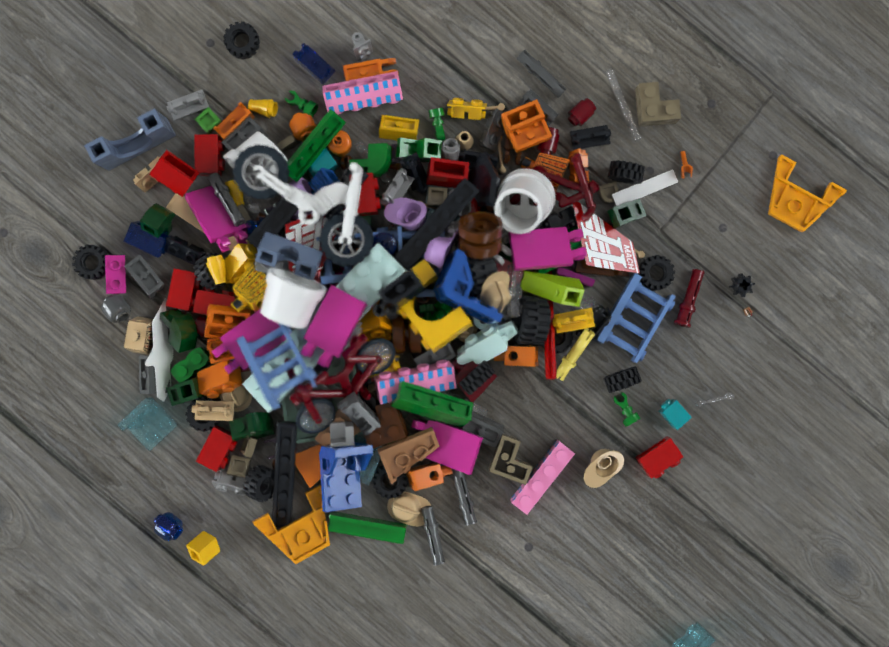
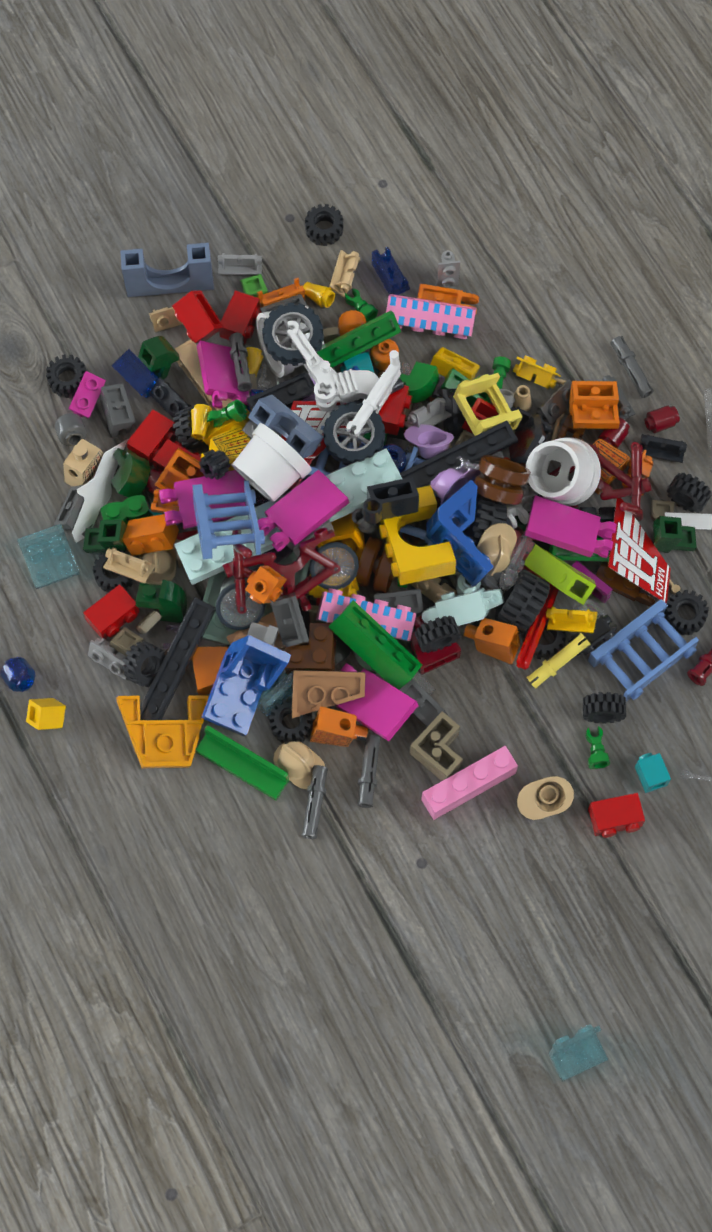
camera: 20 degrees right, 20 degrees down
(241, 256) = (234, 410): none -> green piece
(246, 313) = (214, 464): none -> black gear
(276, 83) = (343, 272): none -> tan hinge
(330, 401) = (265, 585): none -> orange brick
(446, 232) = (466, 465): none -> clear hand
(453, 178) = (487, 384): none -> light yellow window

